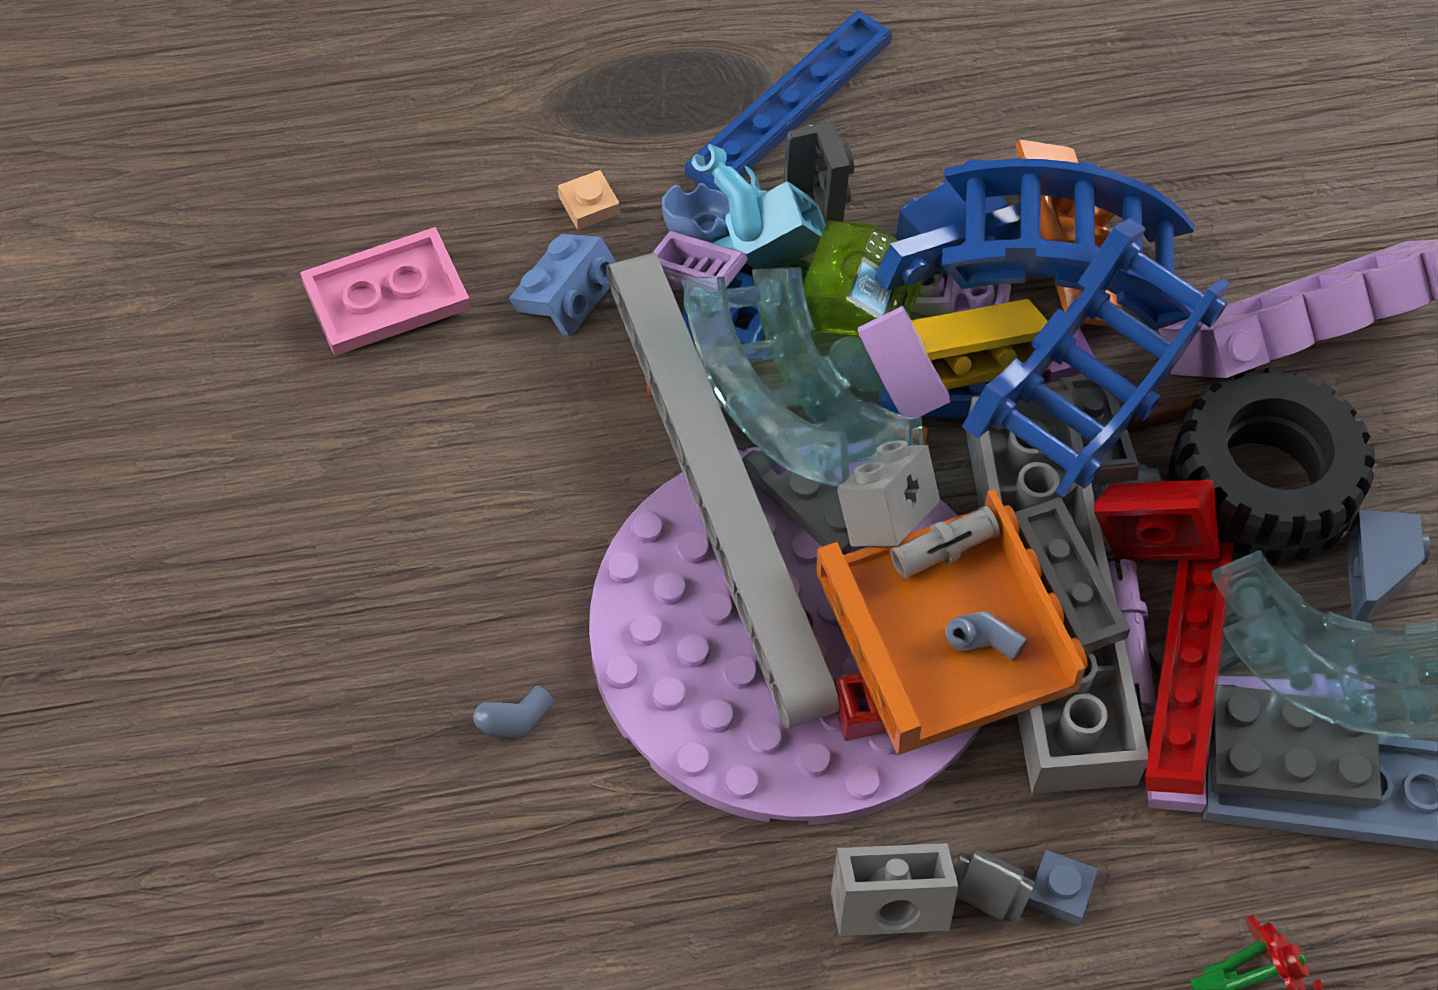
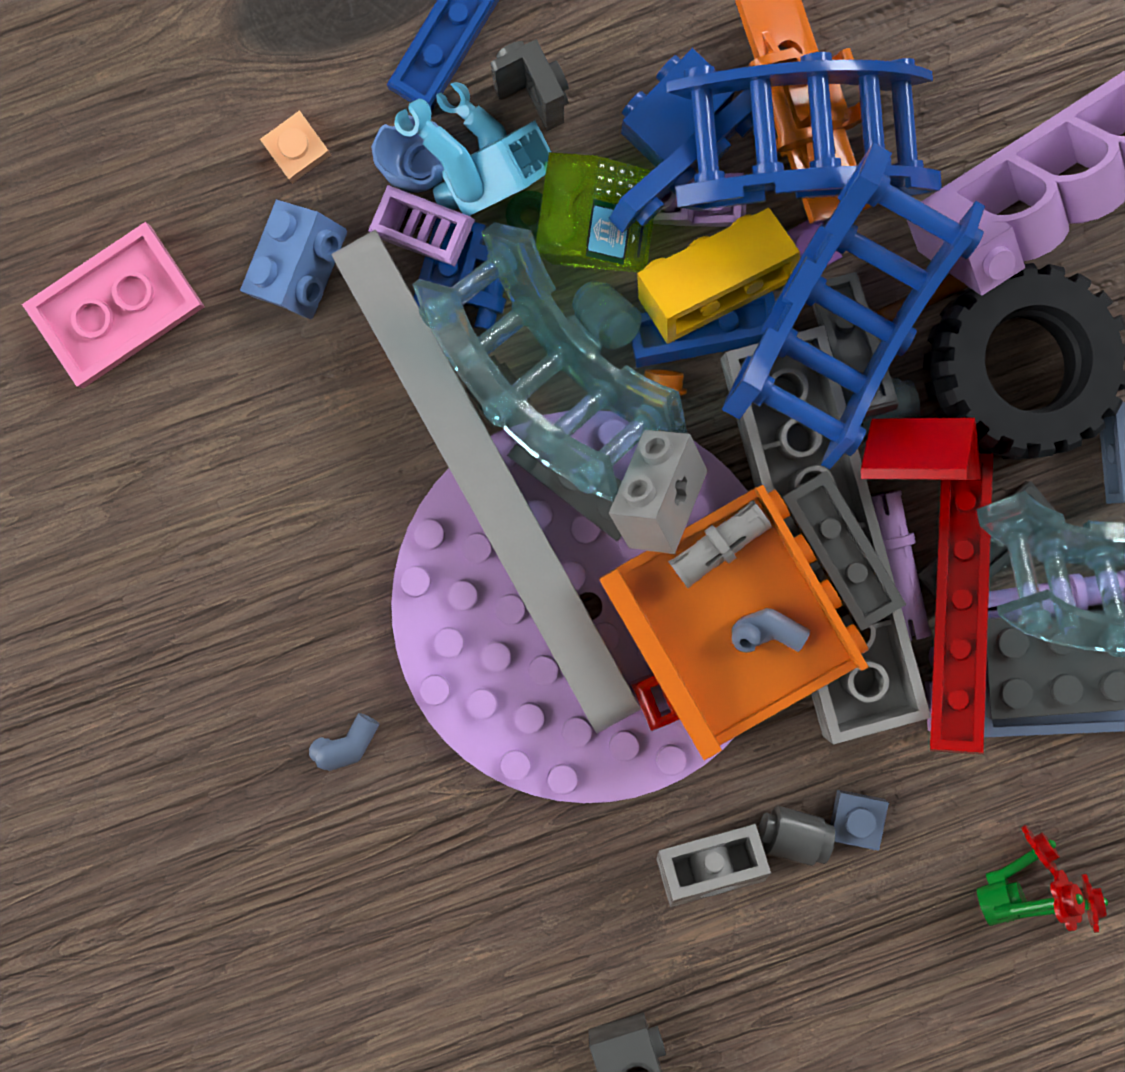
camera: 15 degrees left, 30 degrees up
(903, 363) = (651, 334): lavender slope -> none

